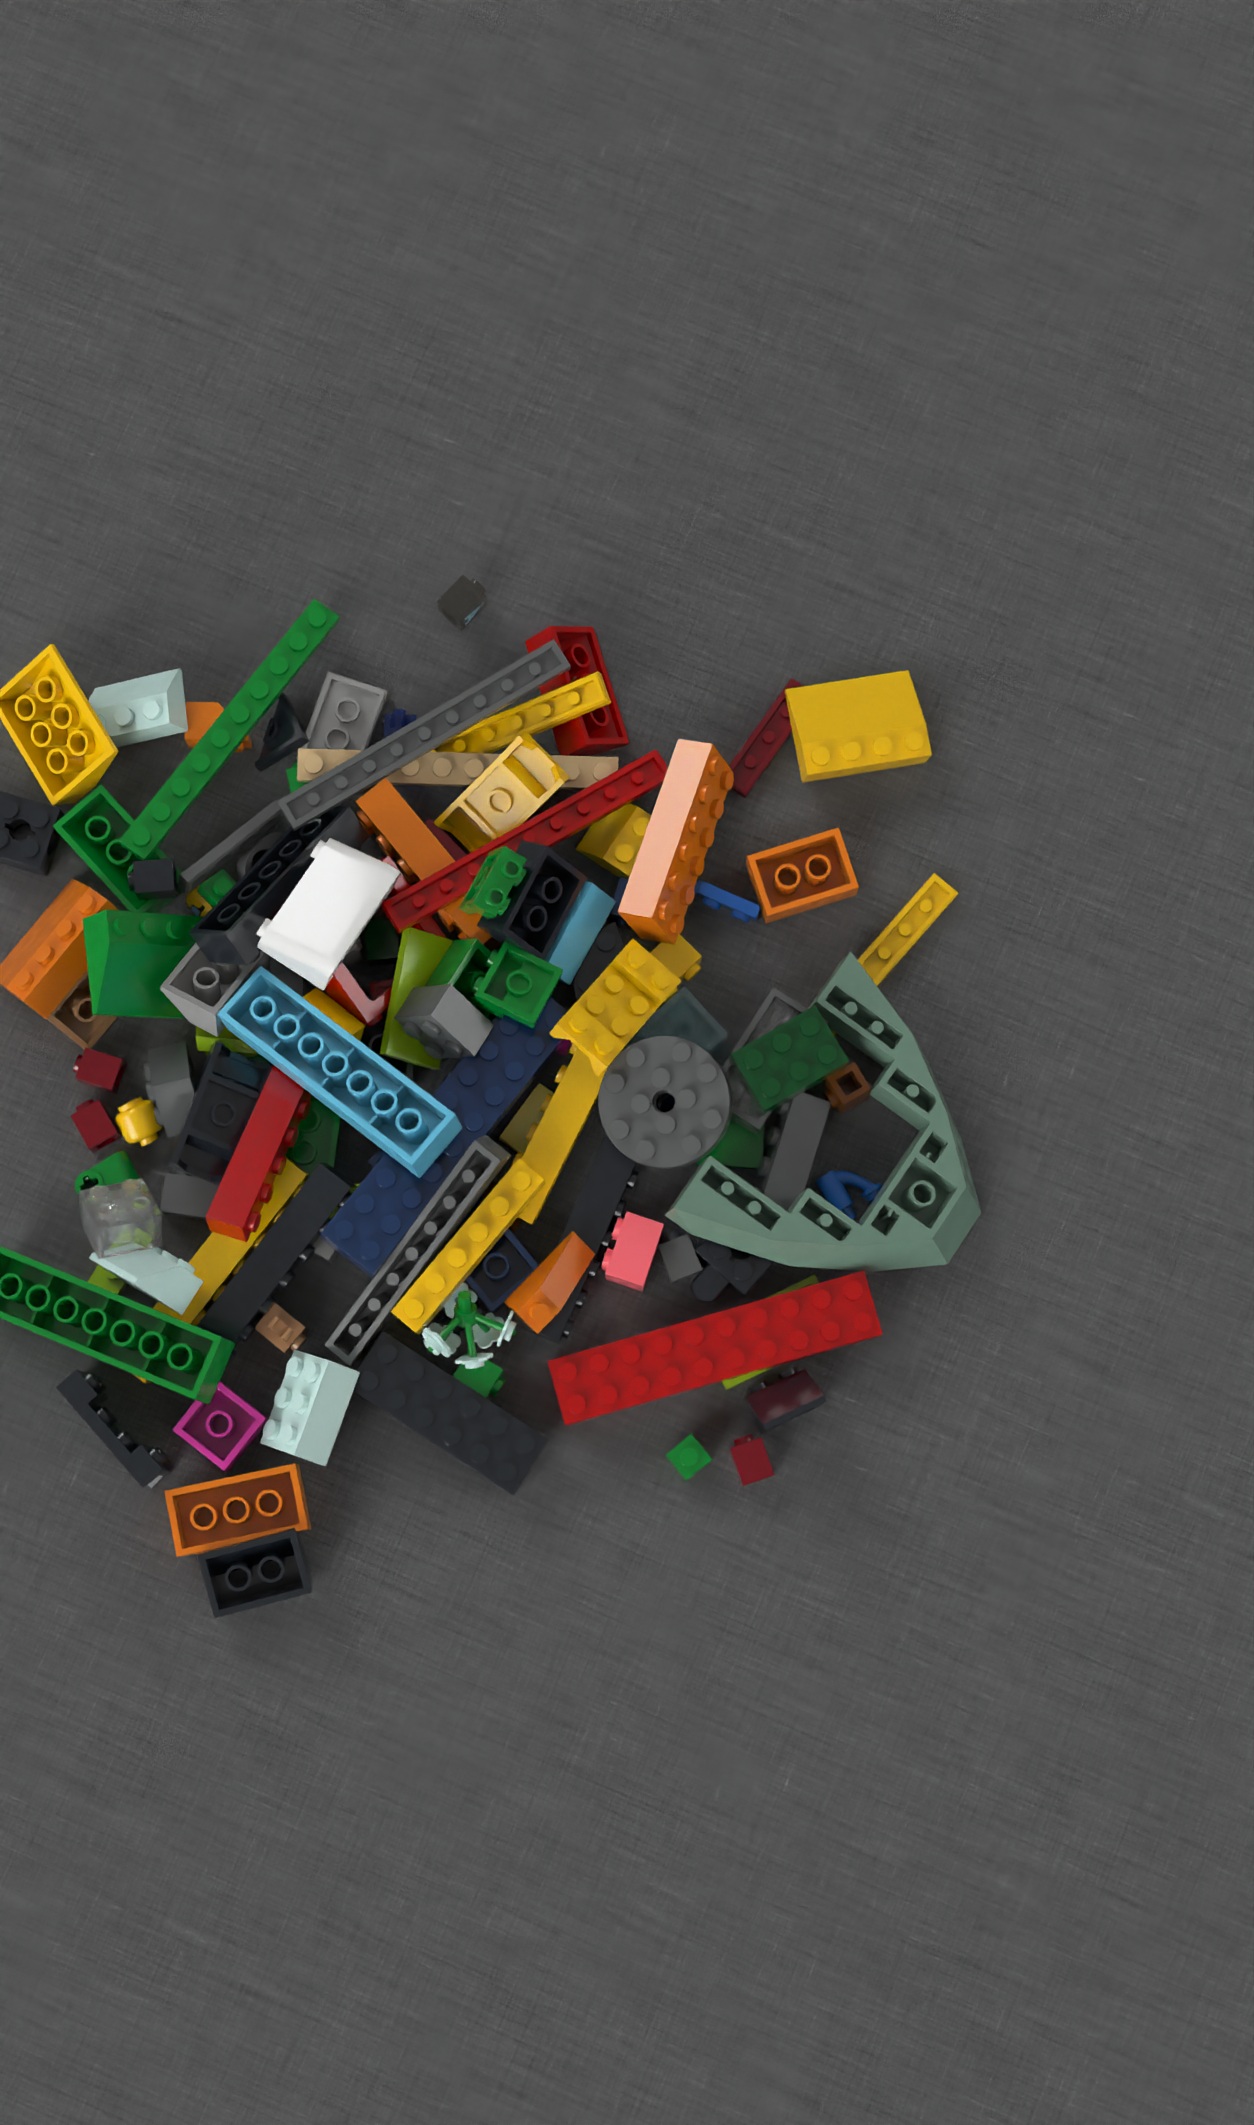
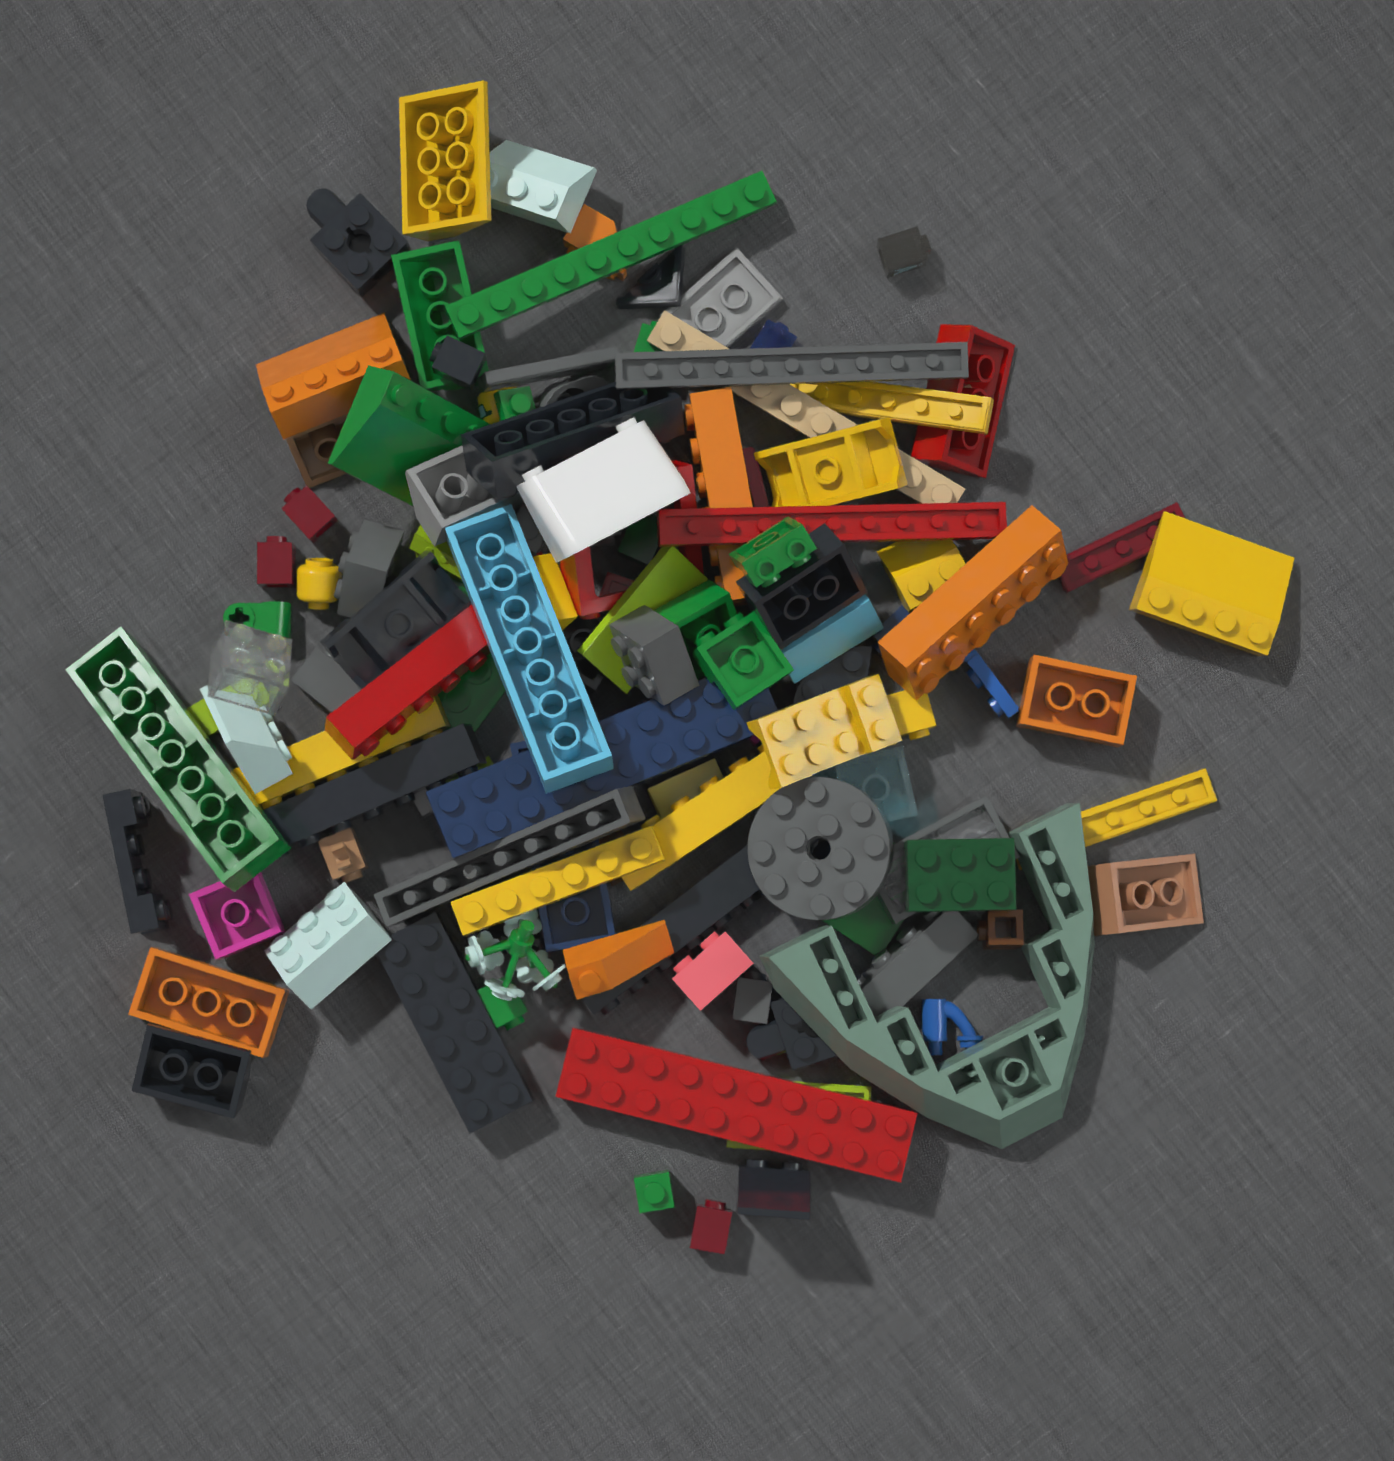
camera: 30 degrees right, 5 degrees up
(944, 997) = (1145, 894): none -> nougat slope

